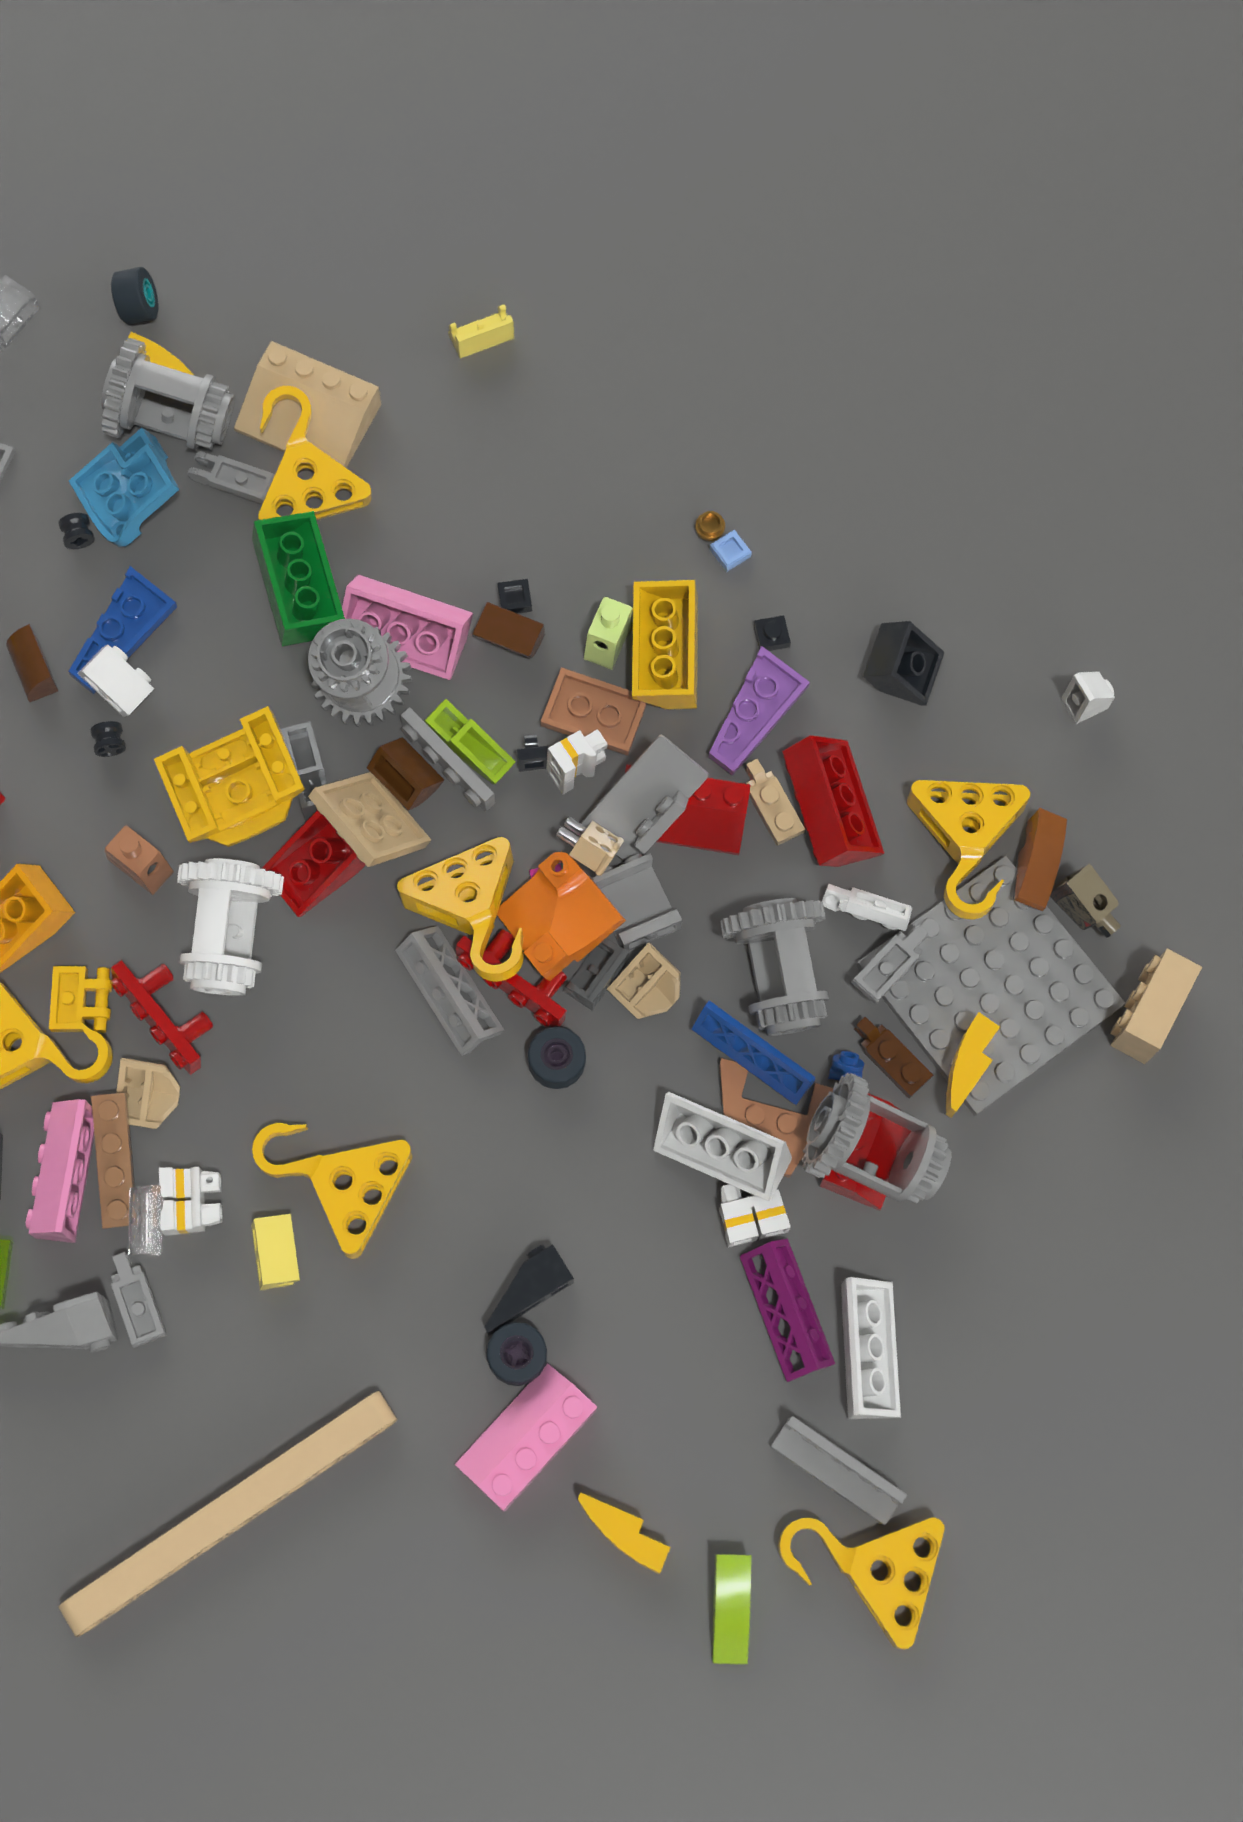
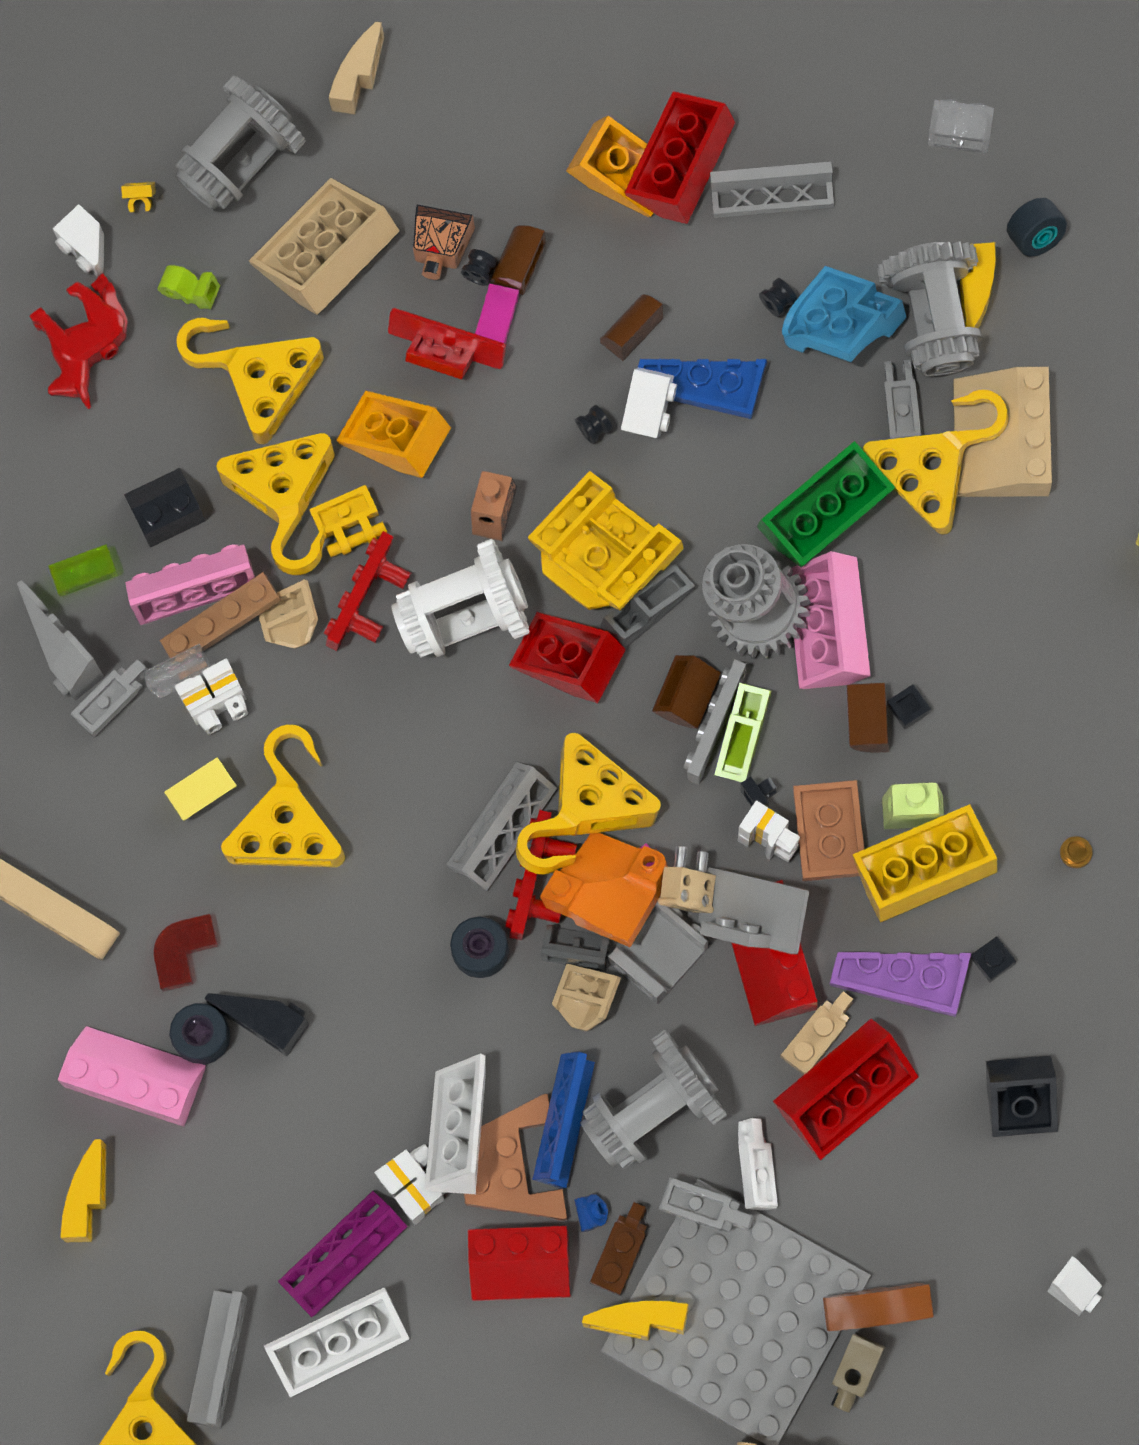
camera: 80 degrees right, 0 degrees up
(369, 819) = (619, 679): tan plate -> none
(416, 1344) = (174, 945): none -> clear red plate
(730, 550) = (1061, 882): light blue tile -> none
(731, 1609) = (60, 1314): lime slope -> none
(838, 1127) = (514, 1215): light grey piece -> none
(984, 817) = (856, 1237): yellow piece -> none

